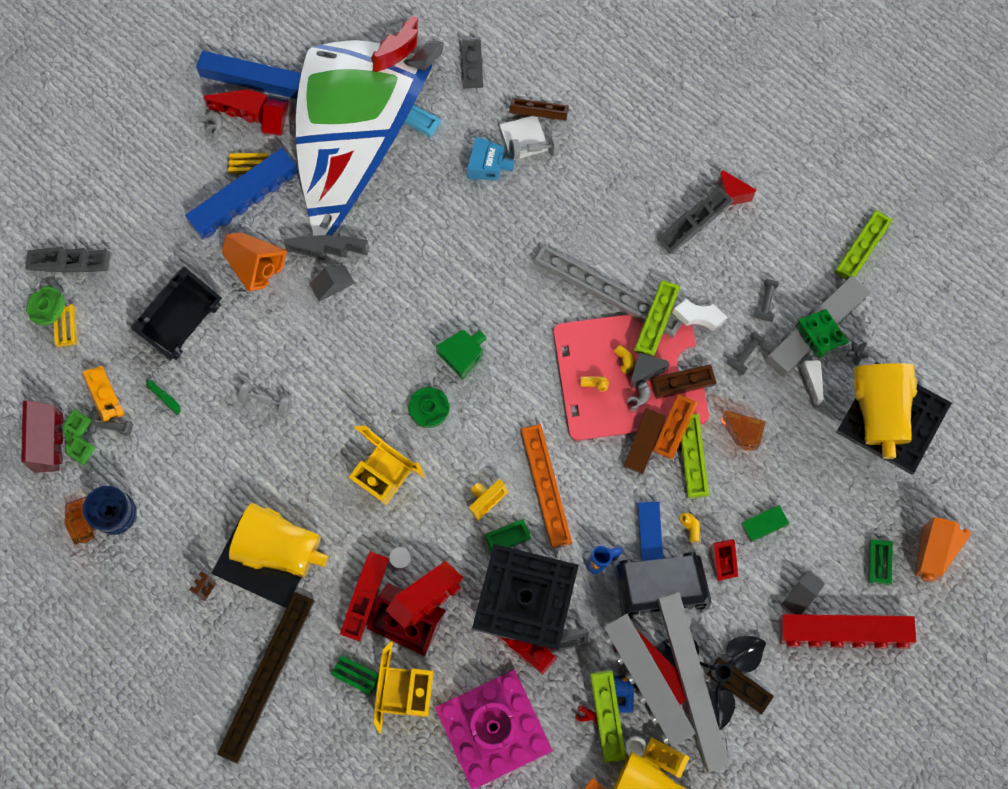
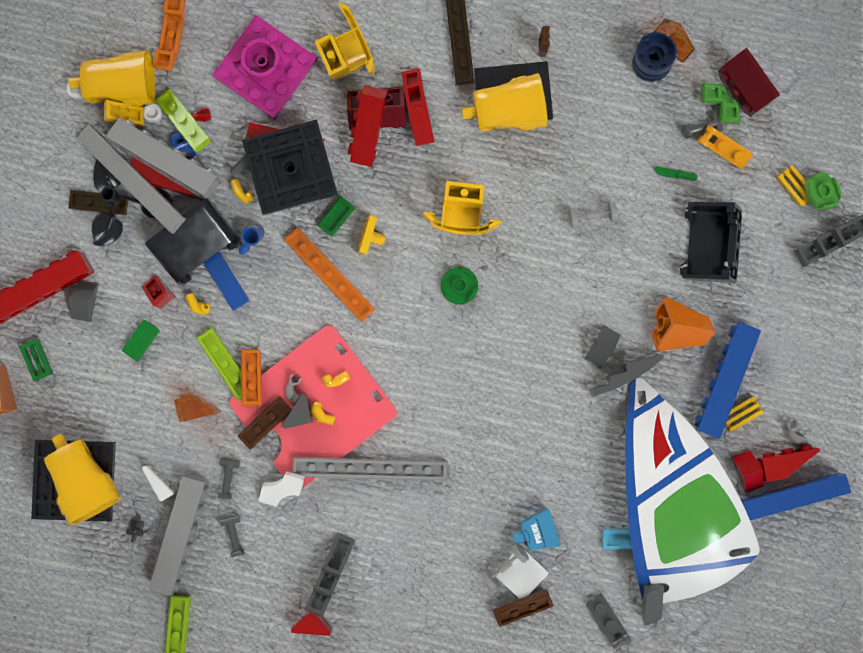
camera: 155 degrees right, 15 degrees up
(338, 666) = (393, 40): green tile -> none
(396, 47) = (680, 593): red slope -> none
(400, 558) = (409, 152): white tile -> none
(462, 351) = (458, 346): green torso -> none
(590, 617) = (239, 193): none -> yellow arm
(644, 441) = (270, 354): reddish brown tile -> none
(657, 318) = (313, 463): lime tile -> none
(822, 332) = (168, 525): green hinge -> none

